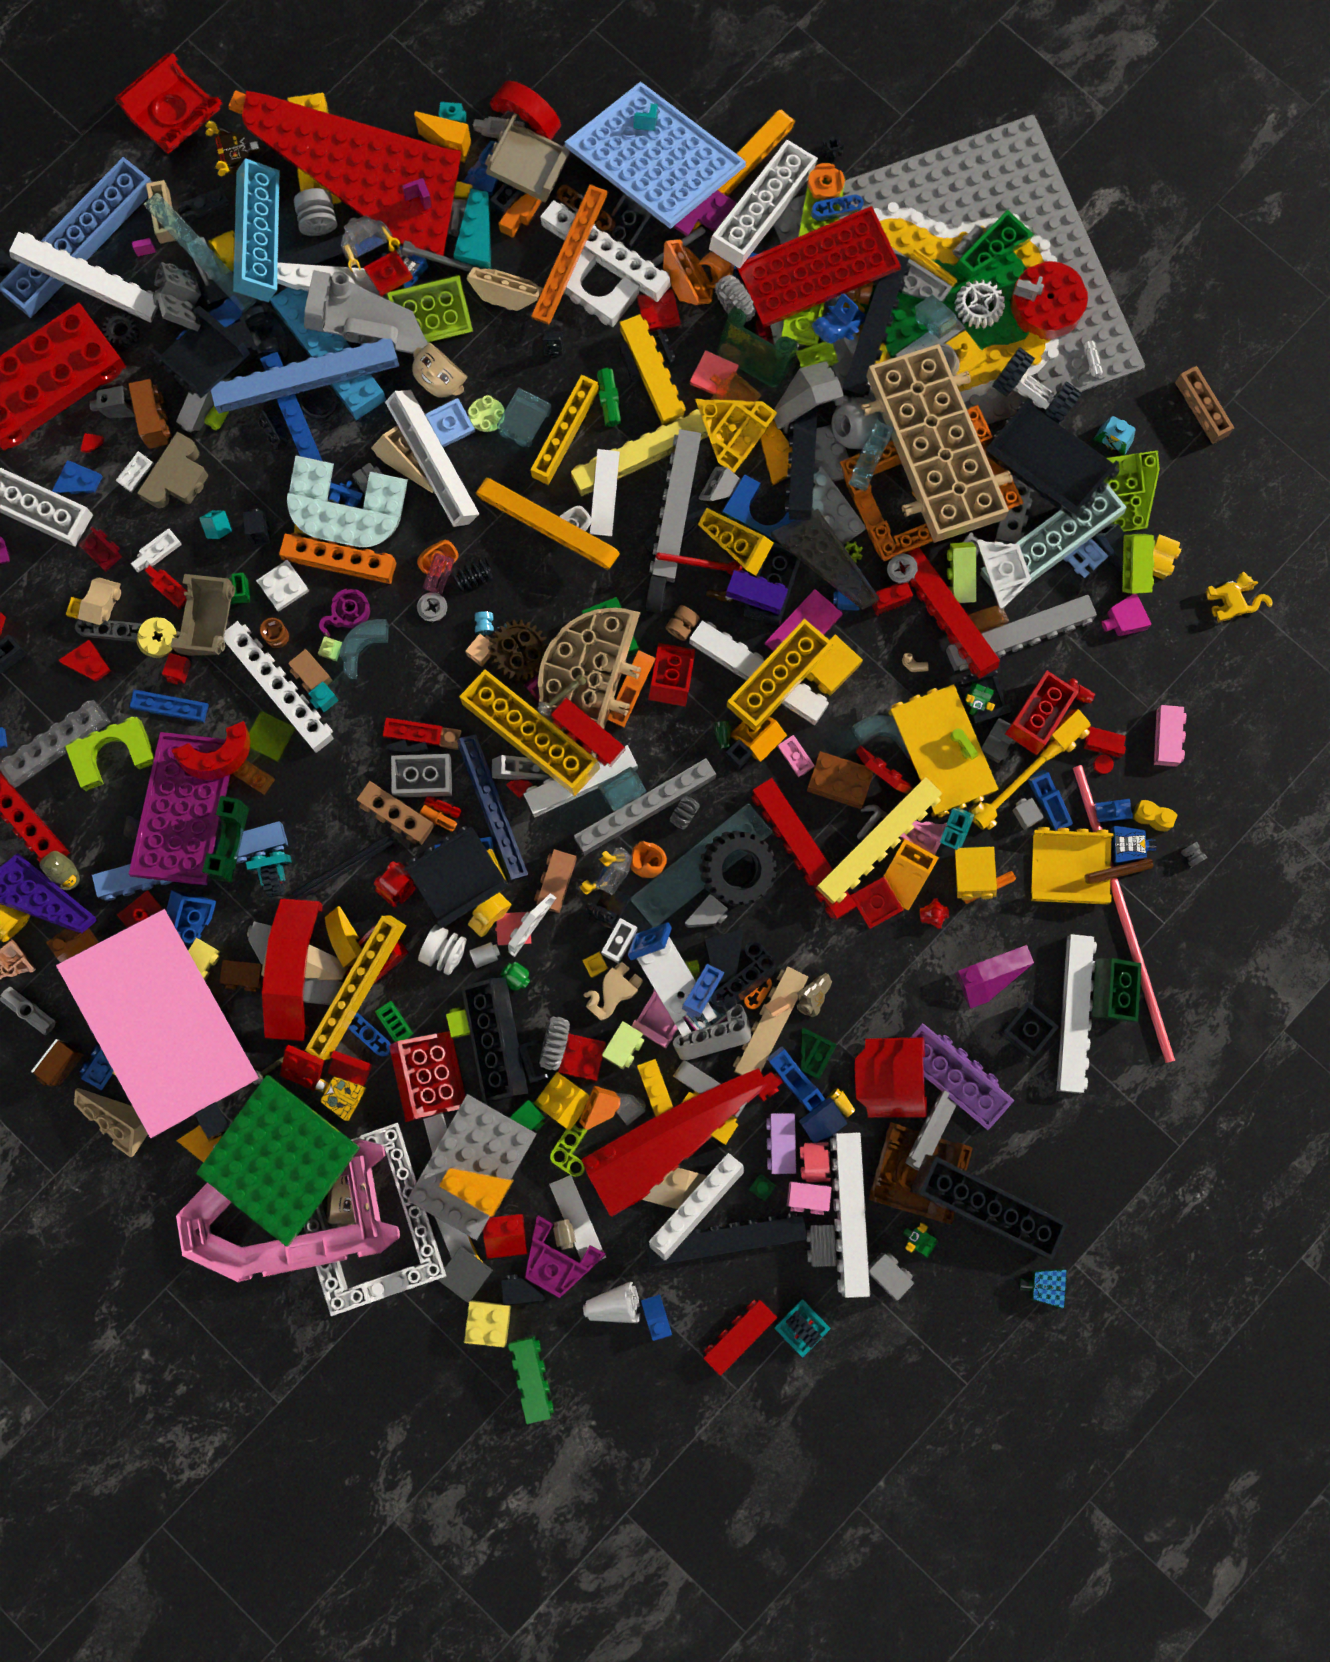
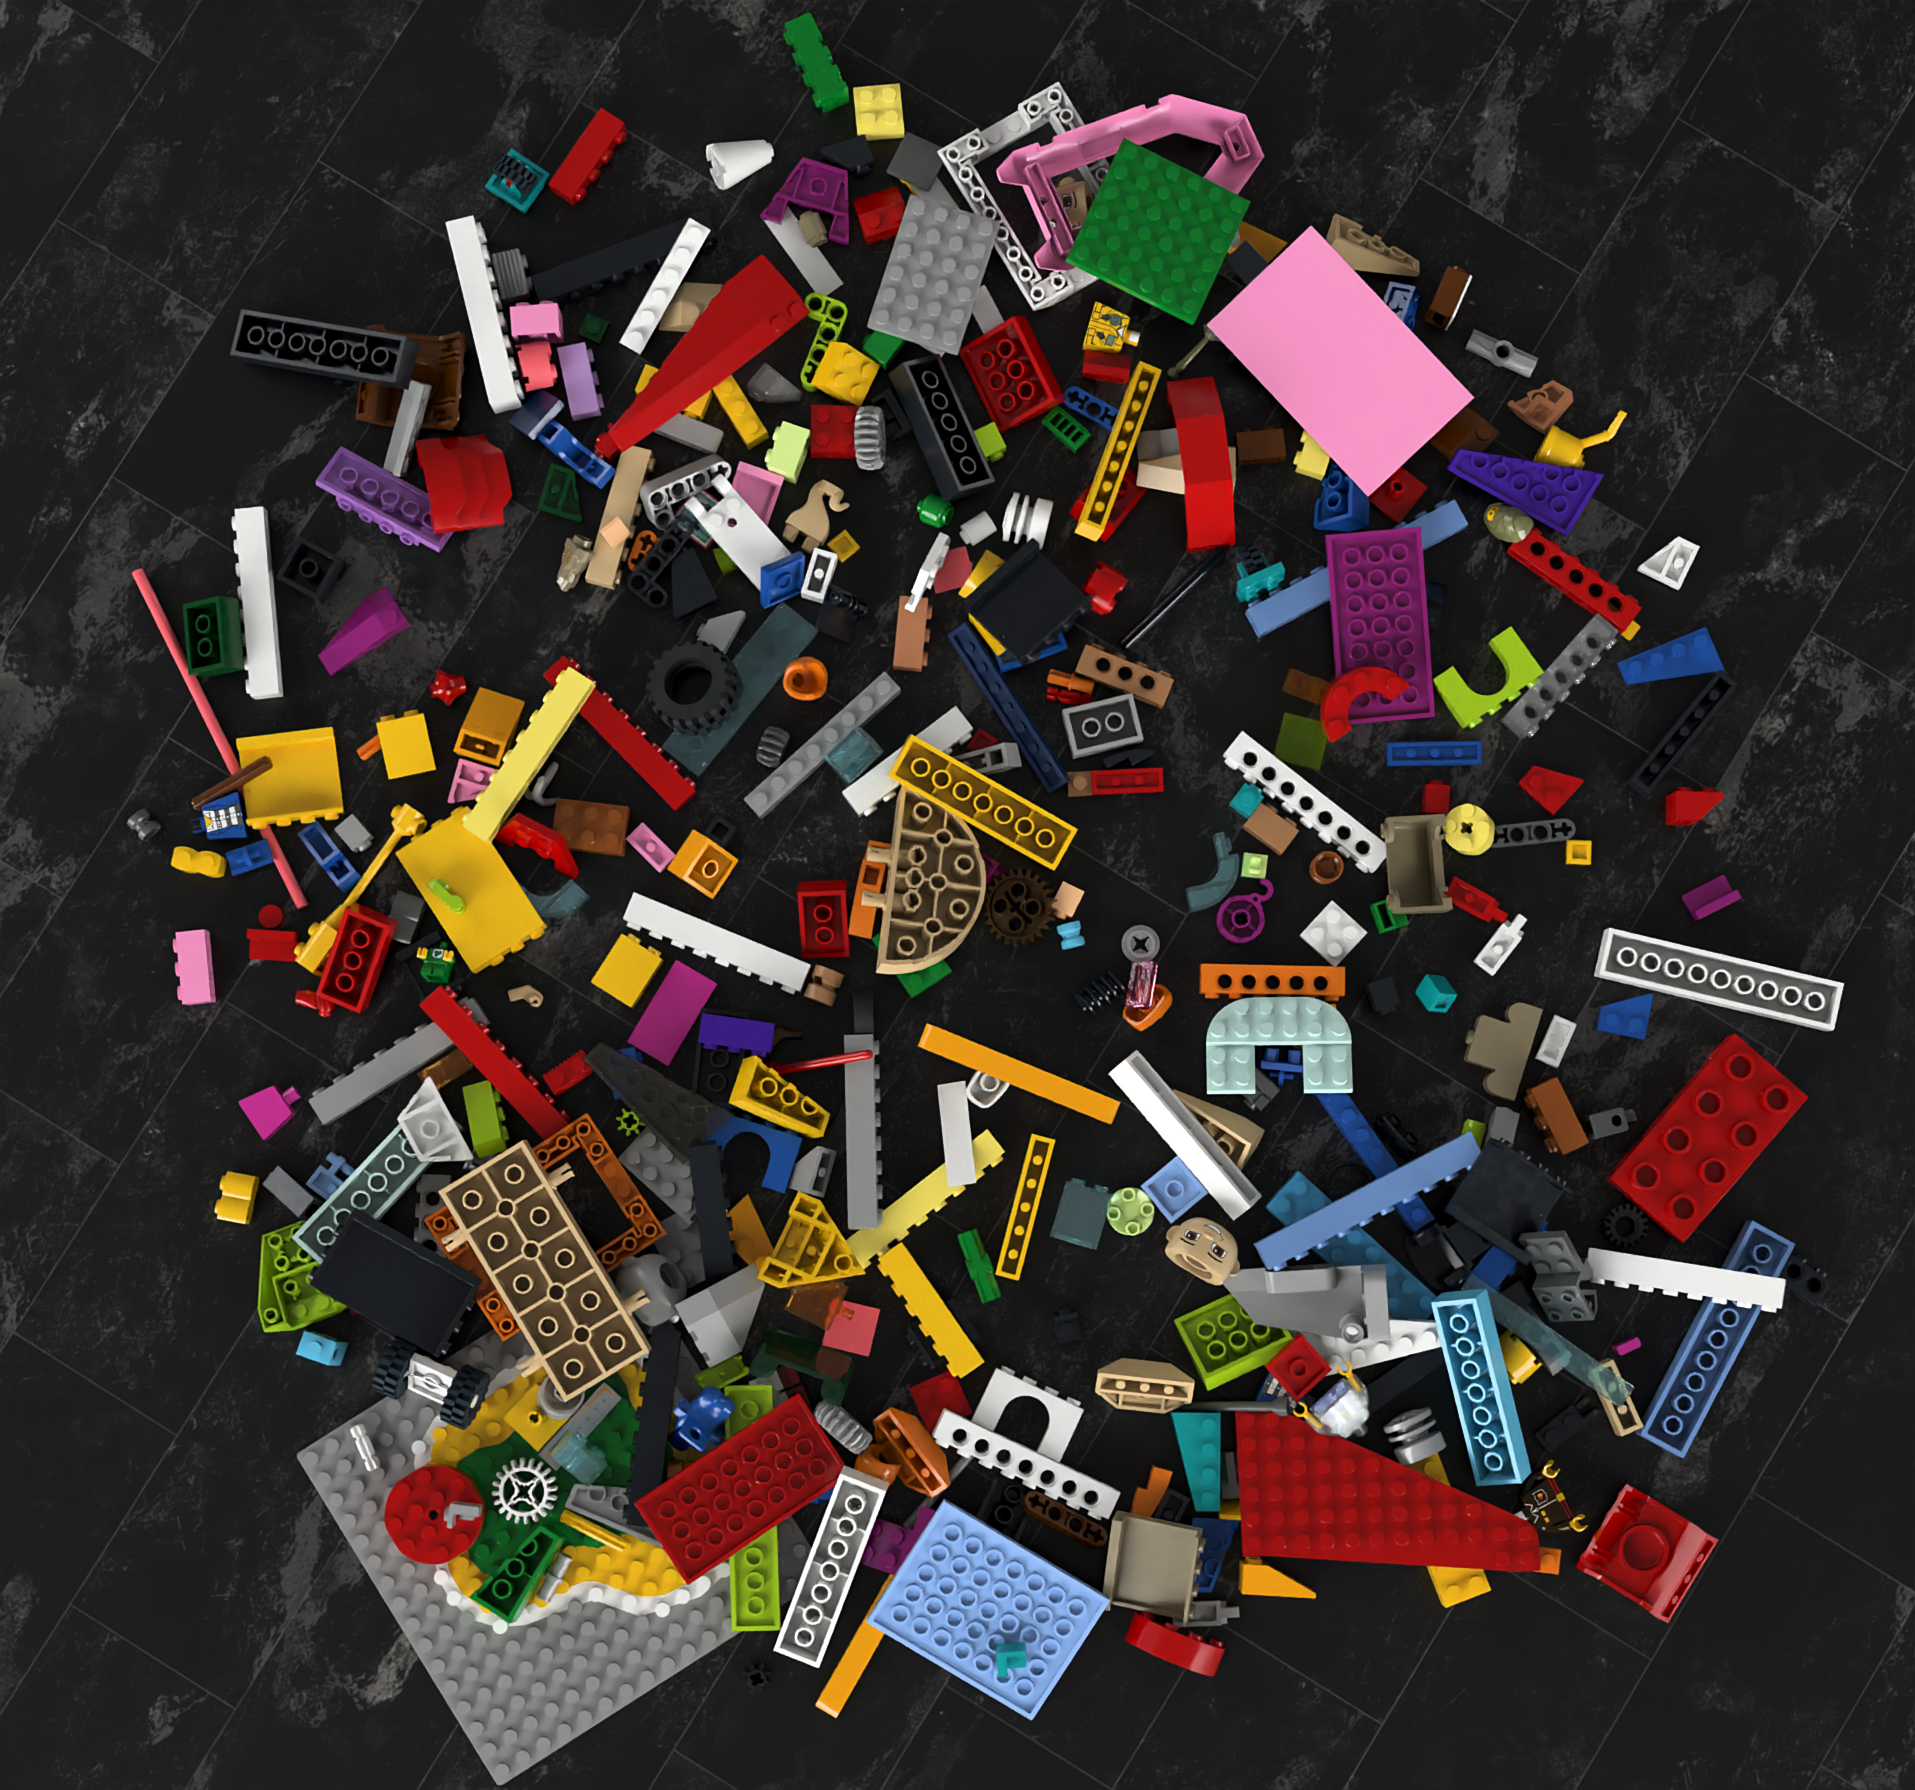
camera: 165 degrees right, 5 degrees up
(91, 442) = (1621, 1069): red tile -> none
(99, 601) = (1553, 863): tan brick -> none
(100, 550) = (1571, 932): dark red bracket -> none
(233, 818) = (1314, 617): dark green arch -> none
(258, 938) = (1247, 492): light grey slope -> none
(301, 1067) = (1161, 351): red plate -> none
(342, 937) = (1150, 513): yellow slope -> none
(416, 189) = (1276, 1478): magenta panel -> none
(452, 112) = (1270, 1617): teal brick -> none
(477, 1189) = (920, 245): light orange wedge -> none
(545, 708) = (969, 832): olive piece -> none
(569, 254) = (1069, 1442): orange plate -> none
(588, 732) = (908, 809): red brick -> none
(599, 1107) = (800, 371): orange slope -> none
(613, 872) = (843, 655): clear torso -> none
(656, 1317) = (687, 158): blue slope -> none
(702, 991) = (705, 529): blue hinge -> none
(723, 733) = (746, 858): dark green cone -> none
(779, 674) = (688, 934): yellow brick -> none
(820, 190) = (763, 1604): orange plate -> none
(830, 213) = (720, 1598): blue beam -> none
(841, 1102) = (520, 443): yellow cone -> none
(870, 455) = (626, 1247): clear light blue arch -> none
(877, 902) = (518, 686): red plate -> none
(890, 1276) = (427, 255): light grey brick -> none
(894, 566) = (572, 1109): light grey gear -> none
(920, 1240) = (399, 304): green piece -> none
(959, 826) = (437, 791): teal hips -> none
(1046, 1286) = (244, 283): torso -> none
(1138, 563) = (266, 1174): lime brick -> none
(1204, 405) = (212, 1412): medium nougat brick -> none
(1233, 600) = (139, 1159): yellow animal -> none

